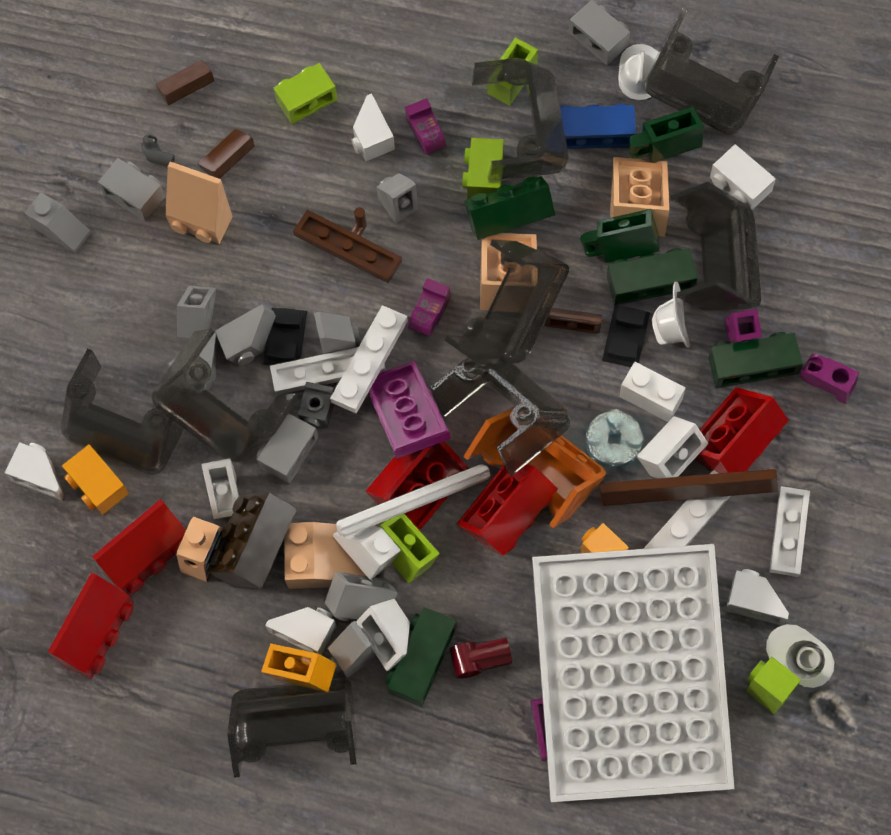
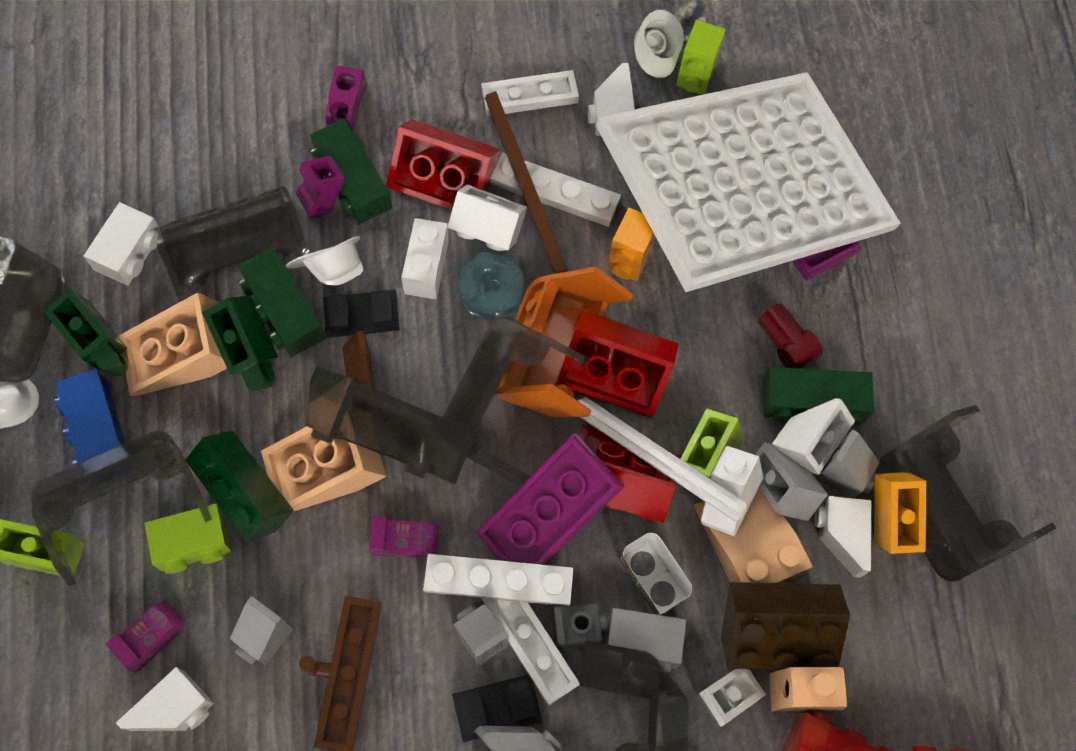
camera: 120 degrees left, 0 degrees up
(320, 462) = (663, 560): none -> white piece

